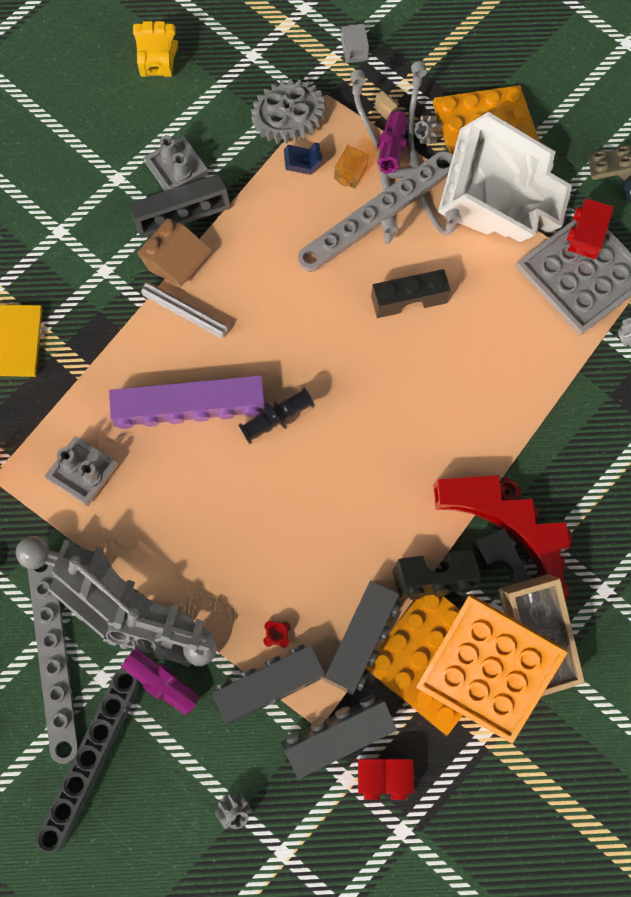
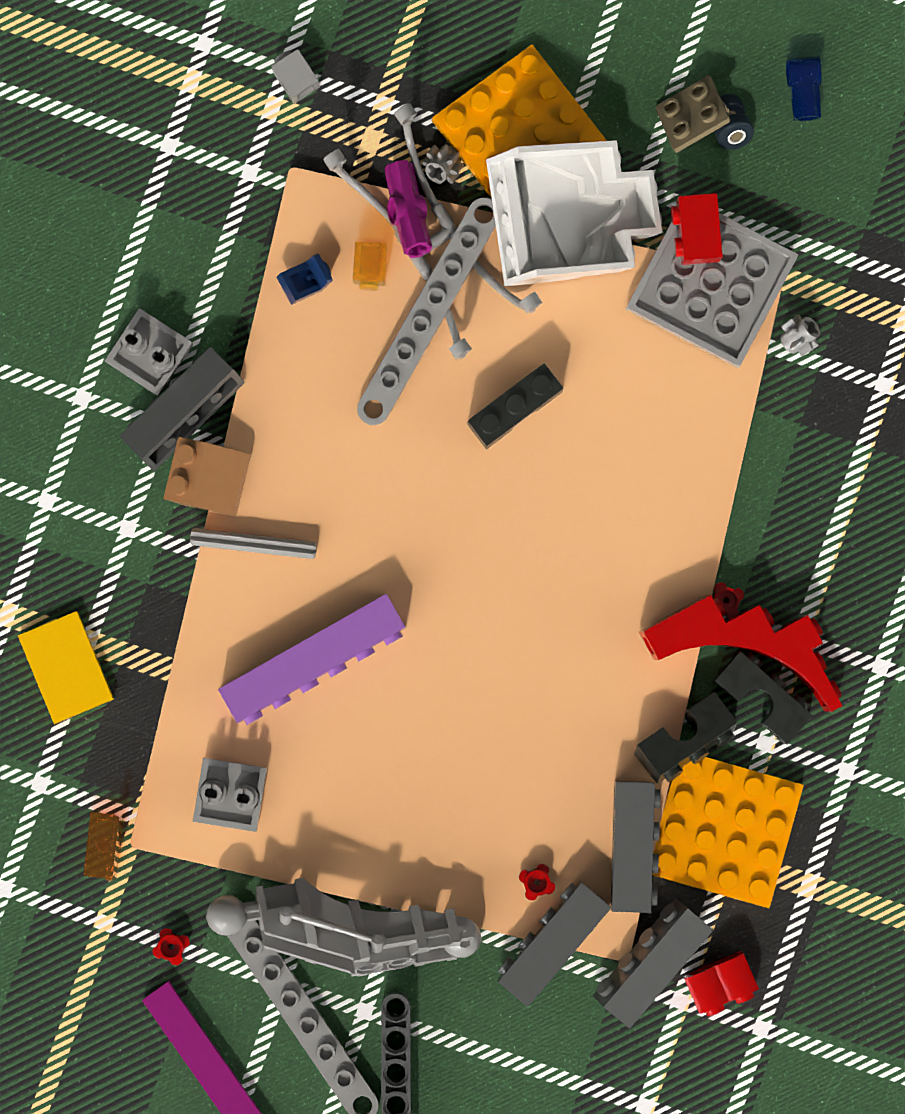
camera: 20 degrees left, 15 degrees up
(155, 48) = (47, 204): yellow piece -> none
(160, 681) = (434, 991): magenta piece -> none
(233, 811) = (574, 1089): light grey gear -> none
(276, 415) = (424, 631): black piece -> none
(288, 111) = (270, 238): light grey gear -> none
(385, 104) = (375, 152): tan tile -> none
(491, 668) = (789, 824): light orange plate -> none
(543, 608) = (829, 760): brick -> none

